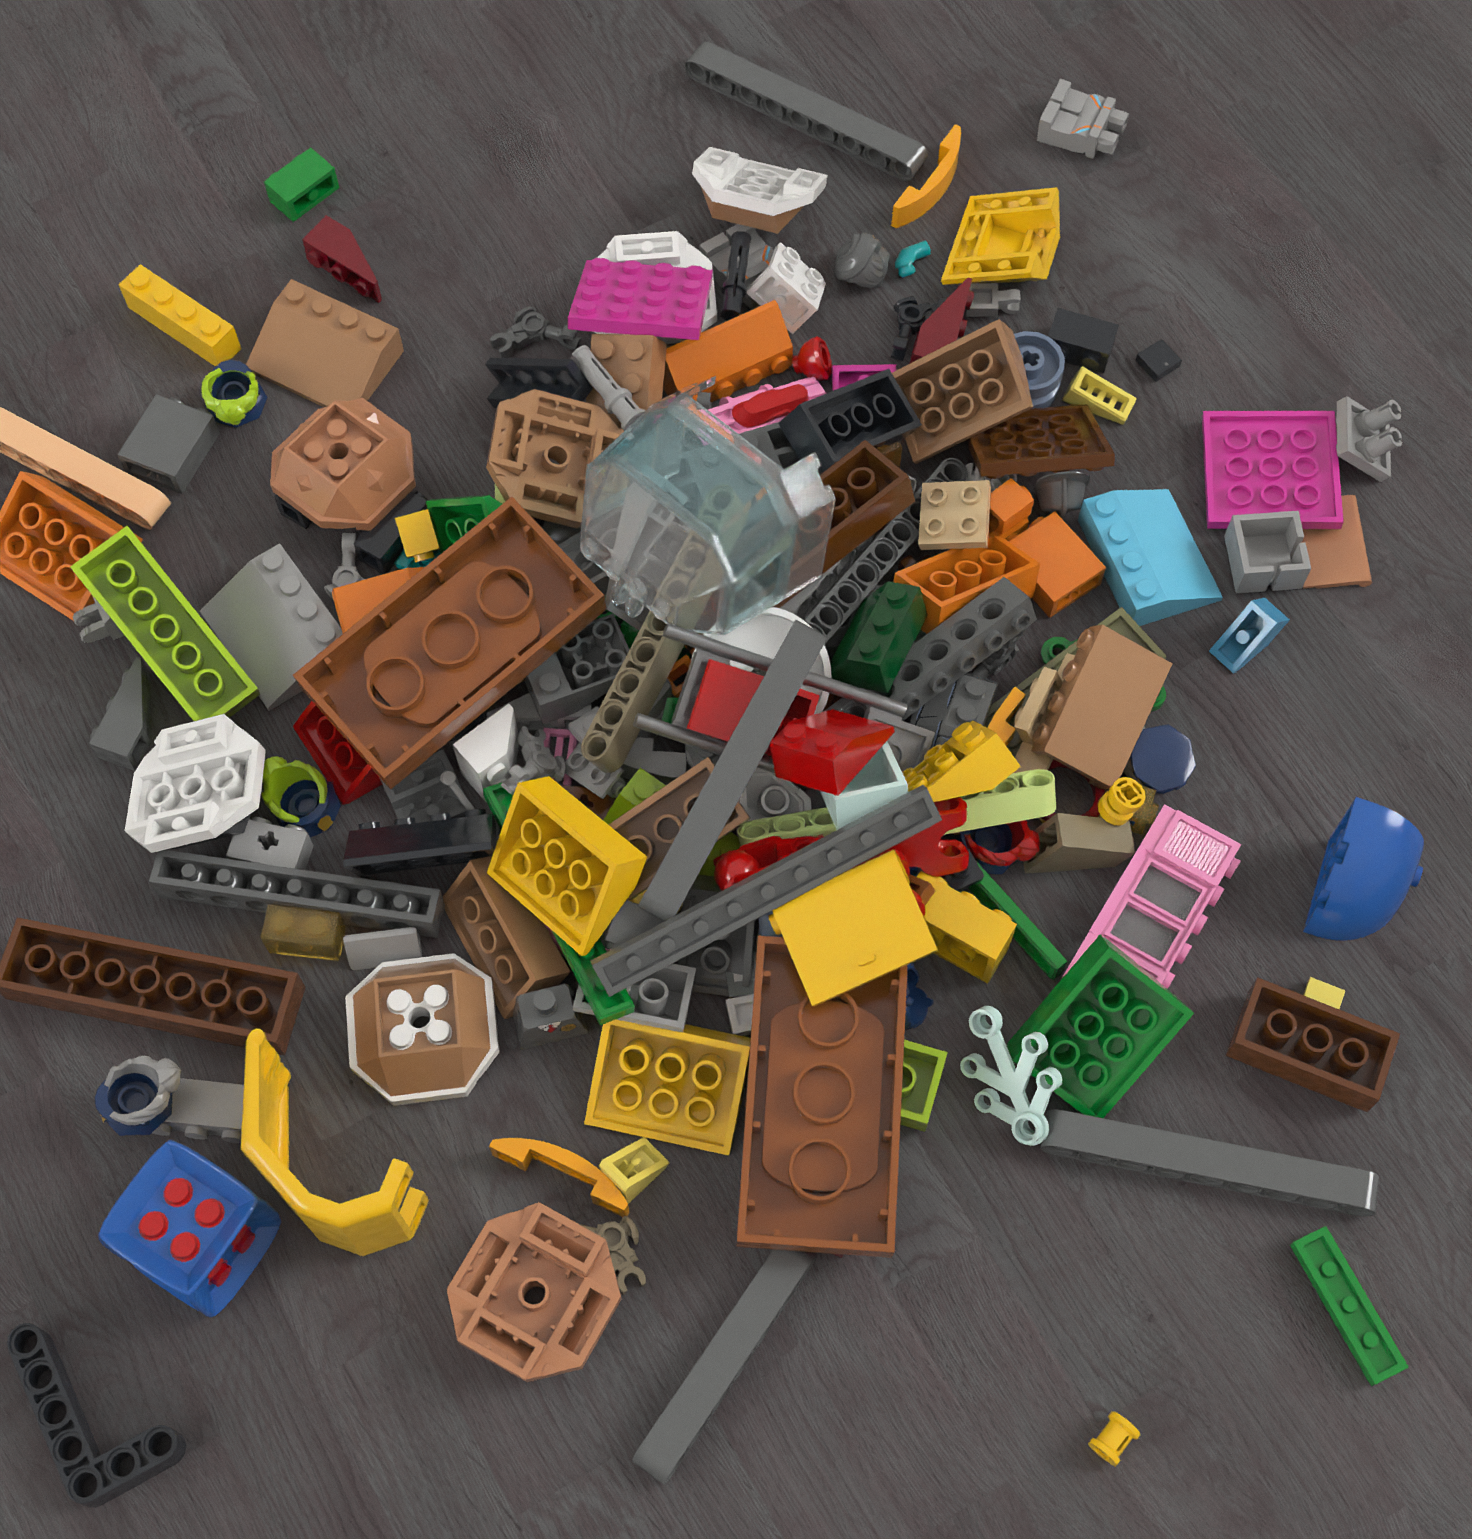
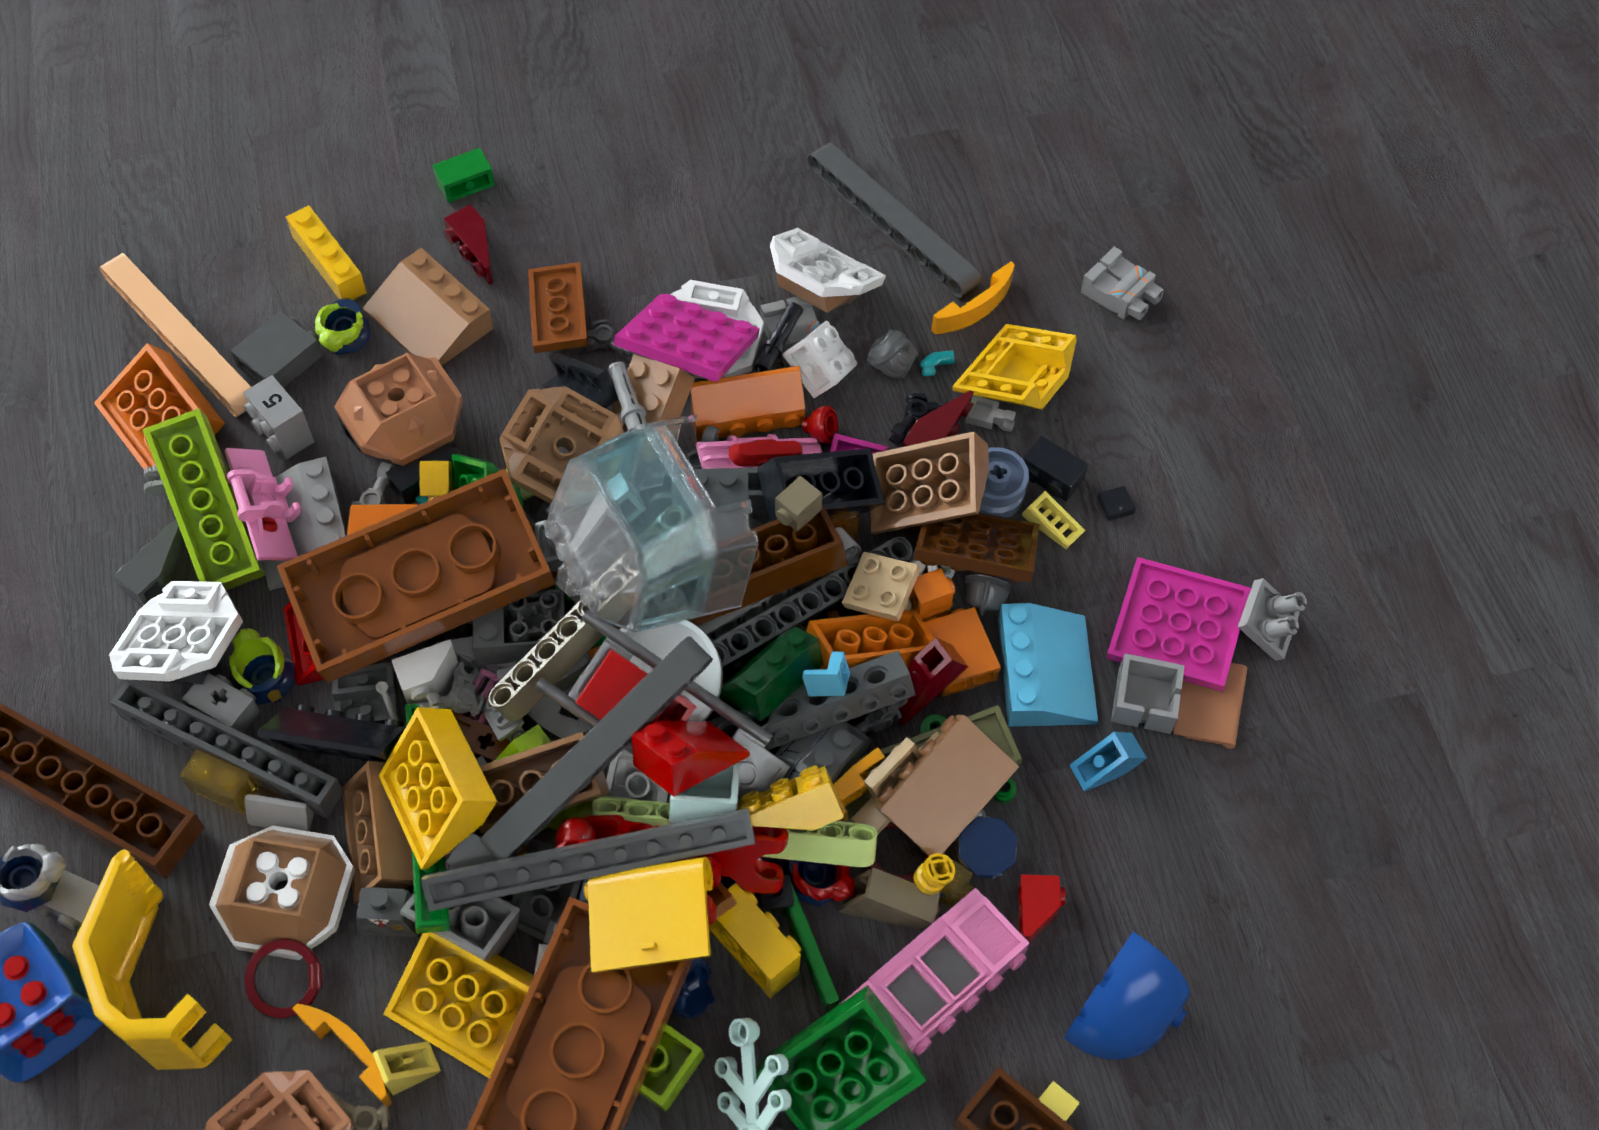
camera: 15 degrees right, 5 degrees down
(205, 515) = (277, 417): none -> light grey brick
(232, 616) = (262, 504): none -> bright pink piece
(471, 307) = (557, 307): none -> dark orange plate
(495, 1105) = (314, 974): none -> dark red piece
(846, 447) = (798, 504): none -> dark tan brick
(943, 630) = (828, 681): none -> medium azure panel
(1046, 585) = (930, 674): none -> dark red slope
(1230, 800) = (1038, 903): none -> red slope

